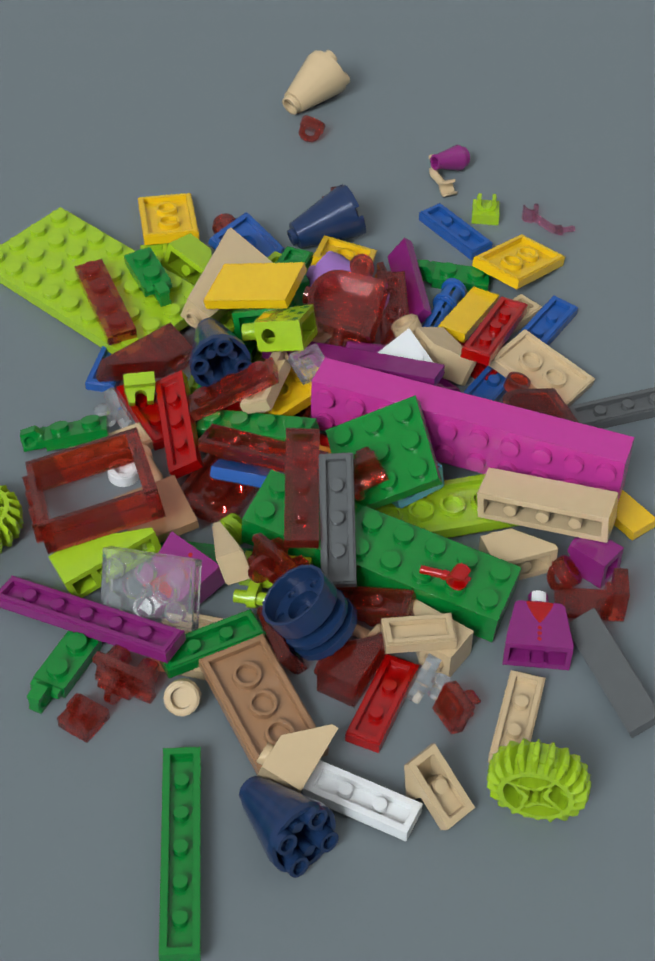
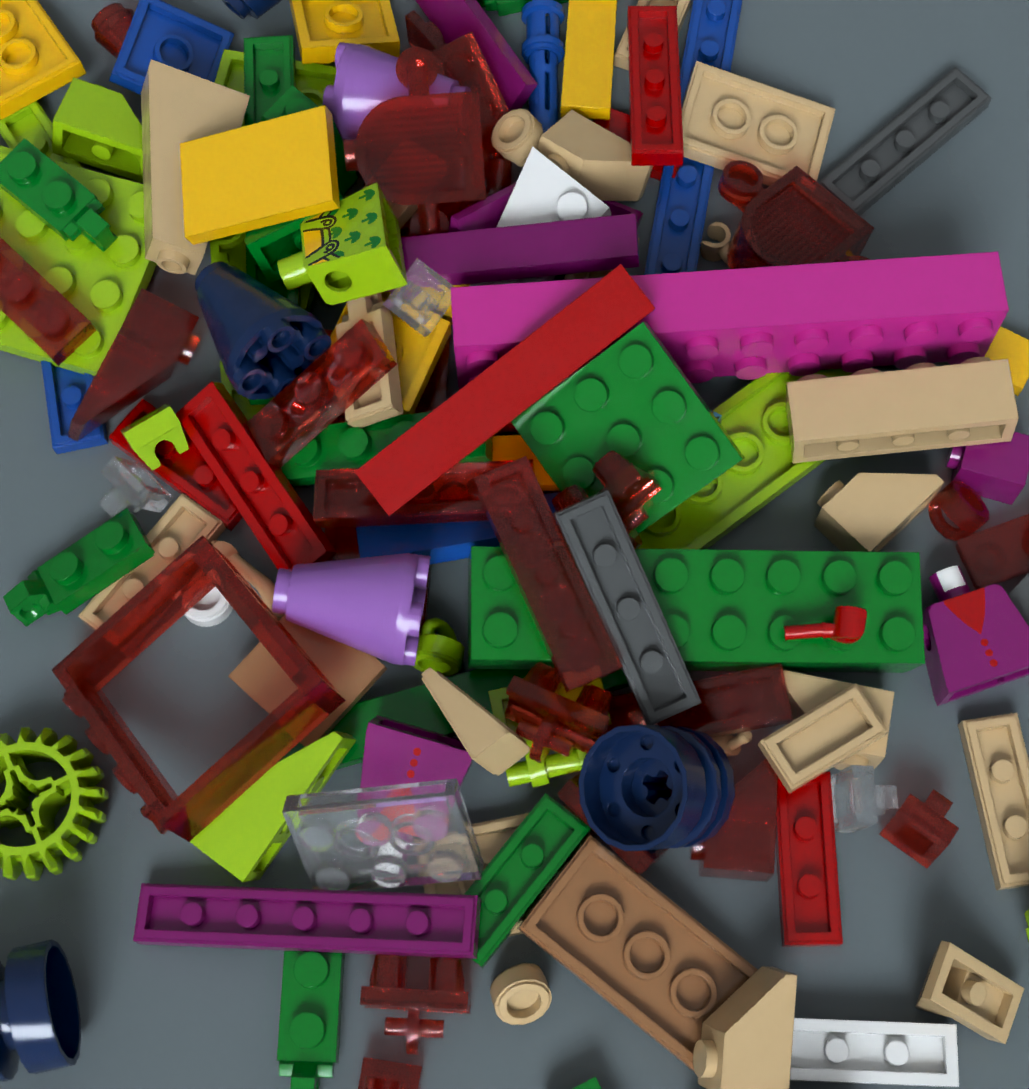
camera: 20 degrees left, 25 degrees up
(201, 480) = (359, 602): none -> medium lavender cone
(326, 407) = (505, 390): none -> red tile

